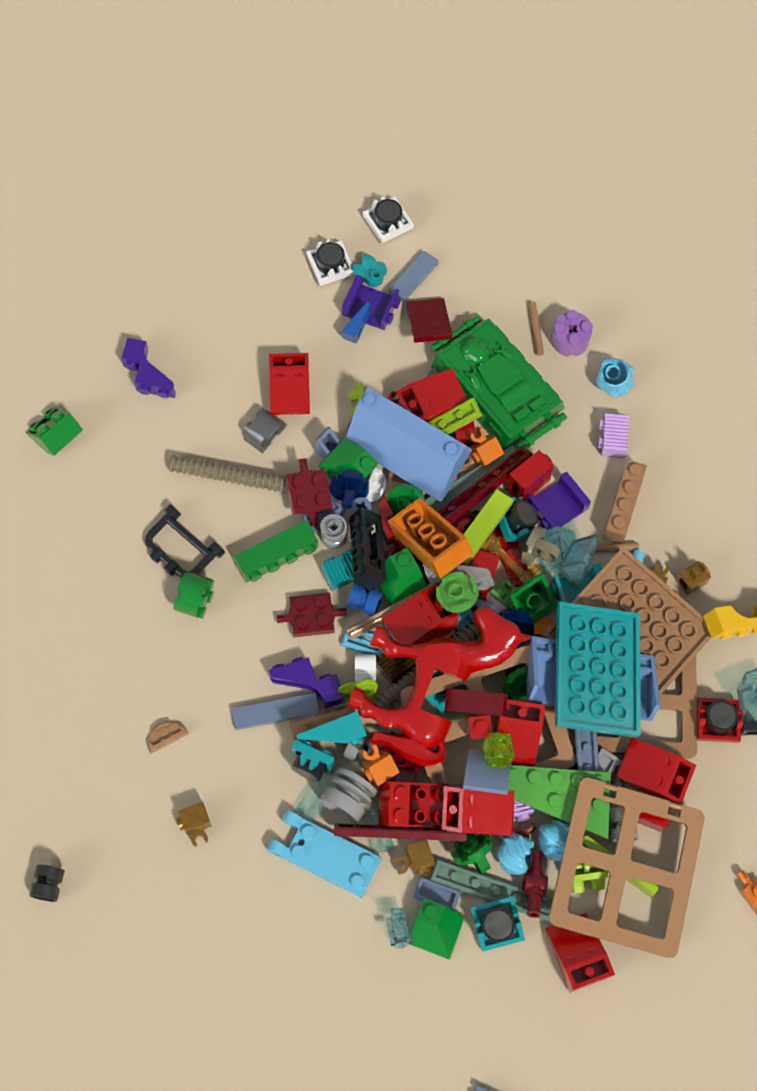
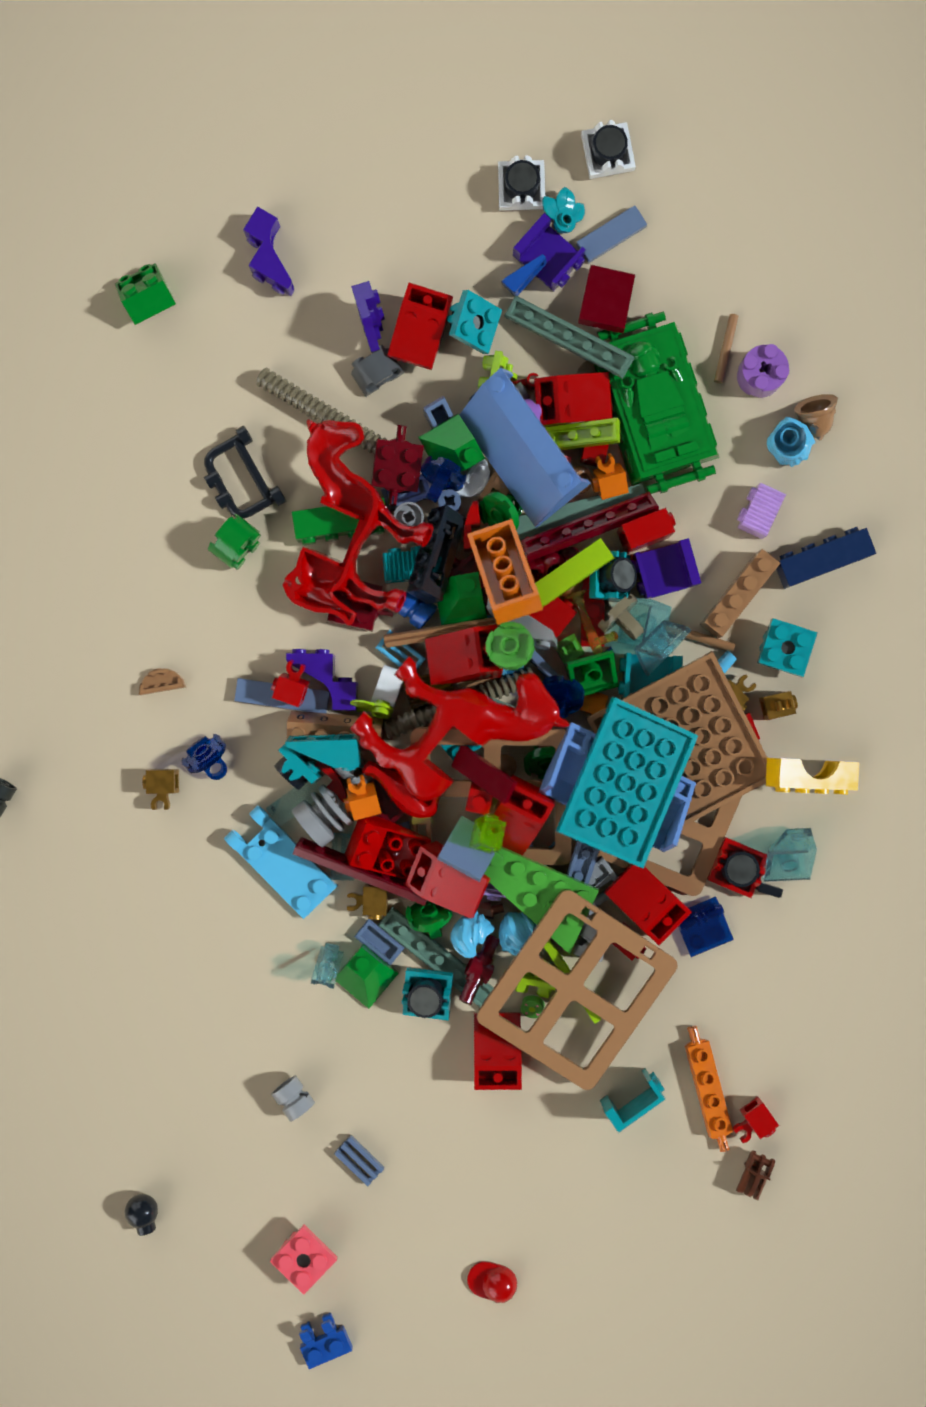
camera: 25 degrees right, 20 degrees up
(226, 780) = (205, 754): none -> clear blue tile
(244, 386) = (369, 313): none -> dark purple plate
(281, 697) = (290, 686): none -> red brick
(285, 524) = (359, 499): none -> red animal
(331, 366) = (474, 321): none -> teal piece
(344, 761) = (336, 784): none -> red slope
(411, 354) = (569, 337): none -> sand green tile
(411, 1065) = (293, 1098): none -> light grey wheel
(593, 902) = (532, 1006): none -> bright green tile
(628, 350) = (817, 413): none -> medium nougat piece
(680, 453) = (826, 557): none -> dark blue brick
(680, 529) = (786, 647): none -> teal piece
(708, 971) = (637, 1107): none -> teal panel
(713, 781) = (705, 927): none -> clear blue hinge

